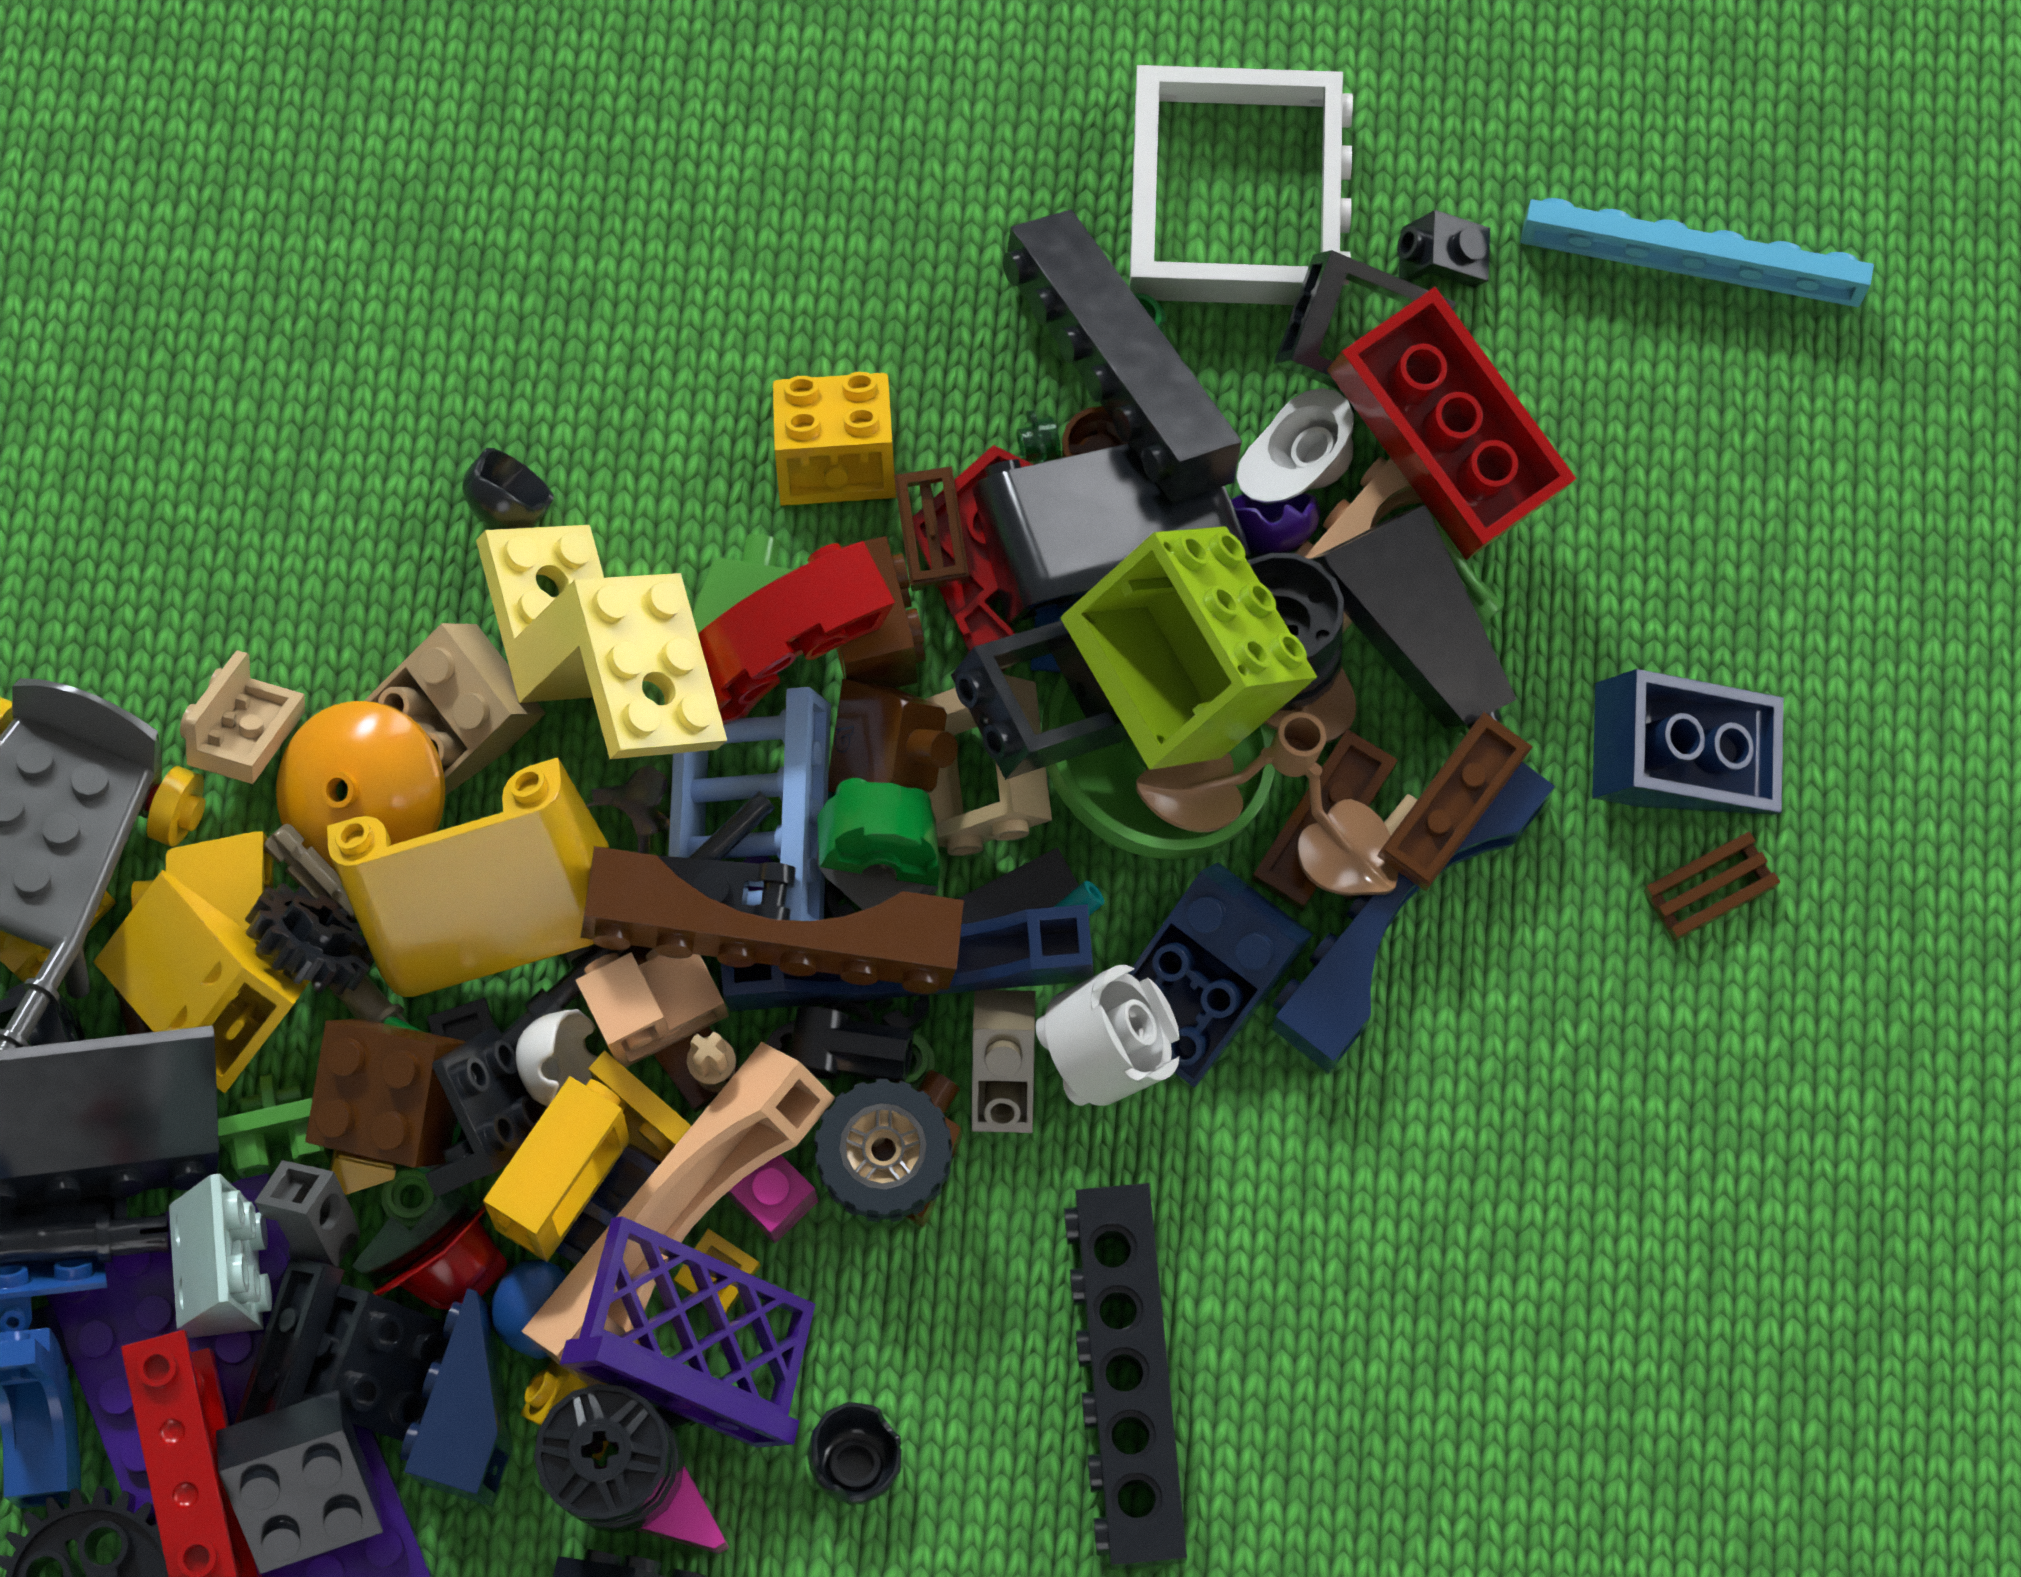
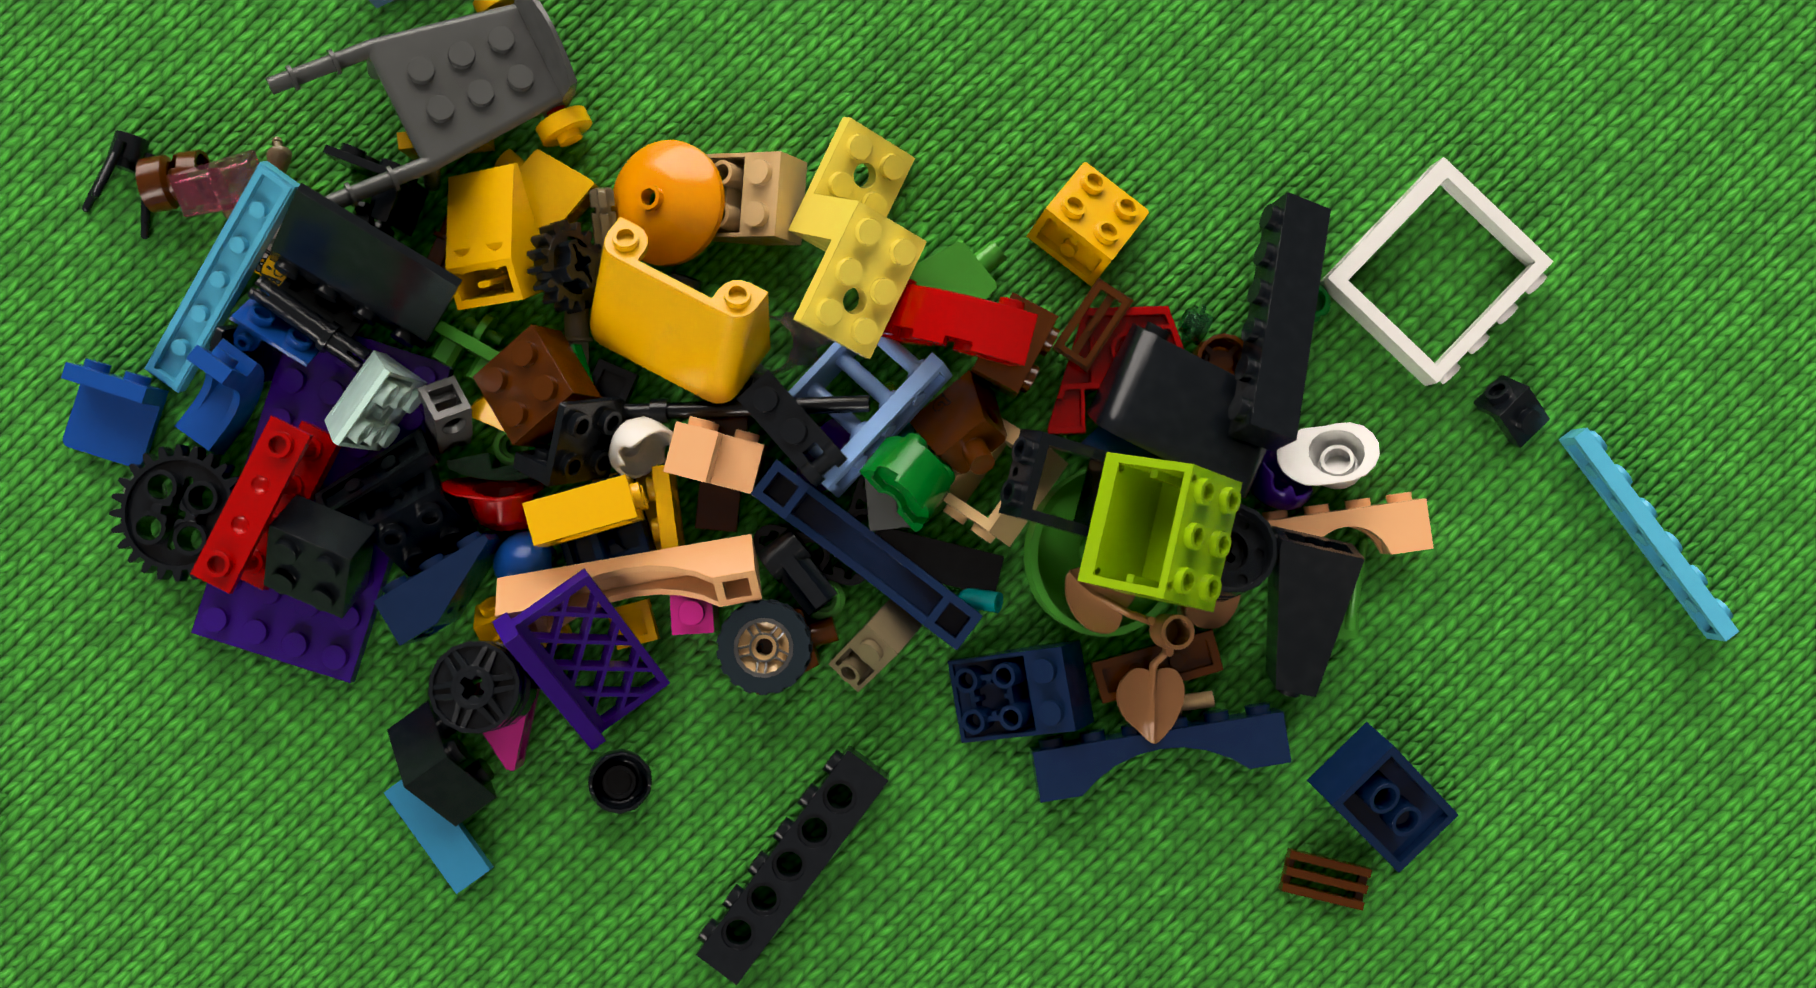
camera: 40 degrees right, 15 degrees up
(239, 722) = (633, 109): tan bracket -> none
(505, 491) = (885, 100): black hair -> none
(645, 904) = (747, 415): reddish brown arch -> none
(711, 1061) = (718, 518): tan axle -> none
(1109, 1036) = (936, 688): white brick -> none
(1316, 305) = (1409, 389): black window -> none
(1450, 423) = (1422, 524): red brick -> none
(1454, 801) = (1230, 725): reddish brown tile -> none

